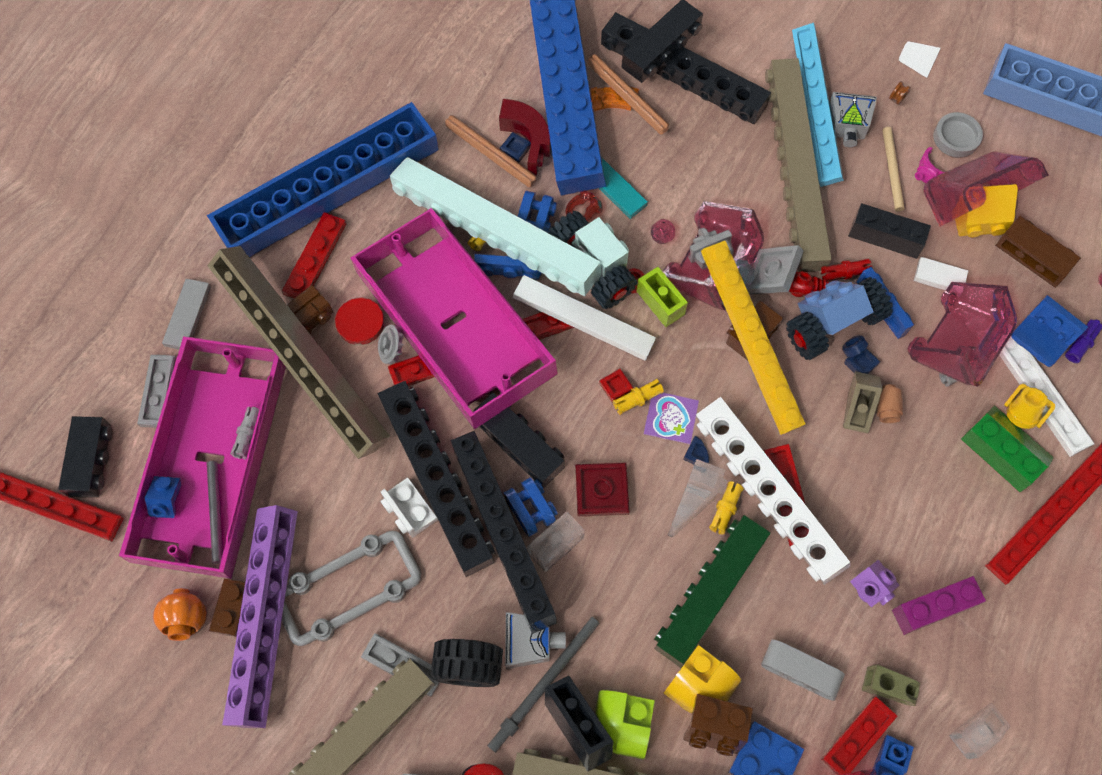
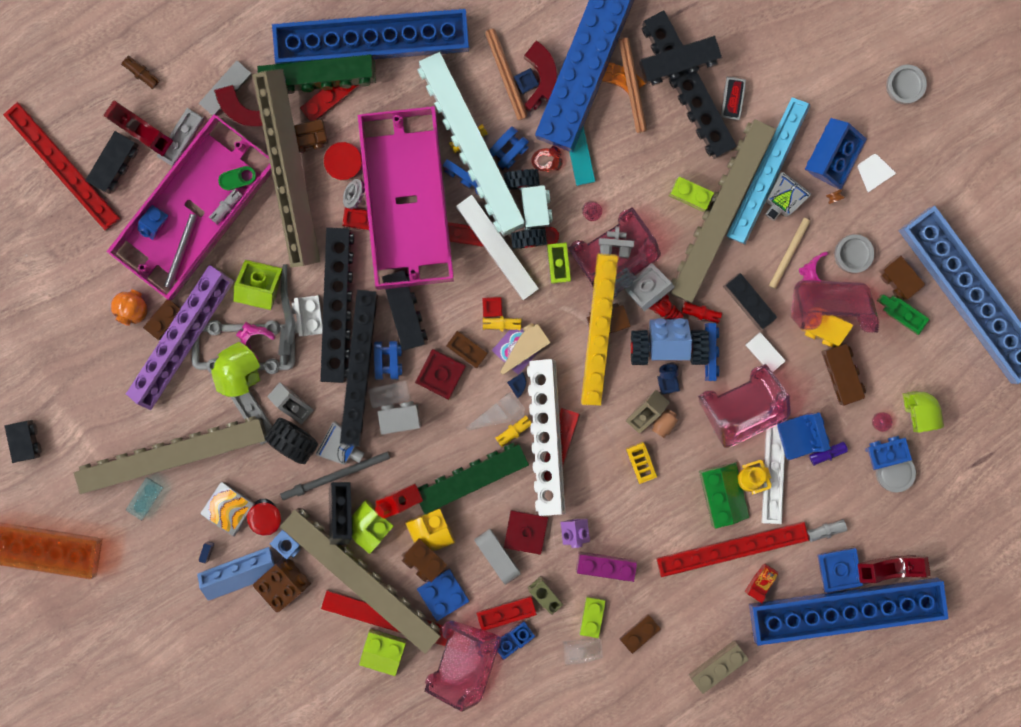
camera: 30 degrees right, 20 degrees up
(78, 345) = (140, 72): none -> reddish brown pin
(115, 404) = (138, 128): none -> dark red arch
(211, 325) = (234, 109): none -> dark red arch
(240, 398) = (233, 179): none -> green piece
(298, 233) = (326, 73): none -> dark green brick
(328, 504) = (257, 284): none -> lime slope
(342, 567) = (249, 330): none -> dark pink helmet
(351, 616) = (235, 370): none -> lime brick
(394, 531) = (287, 331): none -> dark grey piece
(440, 621) = (290, 403): none -> light grey slope
(584, 561) = (399, 419): none -> light grey brick
(616, 445) = (466, 349): none -> reddish brown plate
(637, 669) = (389, 504): none -> red torso
(680, 403) = (528, 343): none -> tan slope
(735, 57) = (733, 98): none -> slope
(755, 161) = (691, 194): none -> lime brick
(816, 621) = (525, 532): none -> dark red plate
(870, 54) = (835, 153): none -> blue slope
(881, 465) = (641, 446): none -> yellow slope
(963, 681) = (592, 617): none -> lime plate
(1022, 130) = (901, 278): none -> reddish brown brick
(1032, 668) = (640, 633): none -> reddish brown plate
(1058, 162) = (903, 313): none -> green hinge

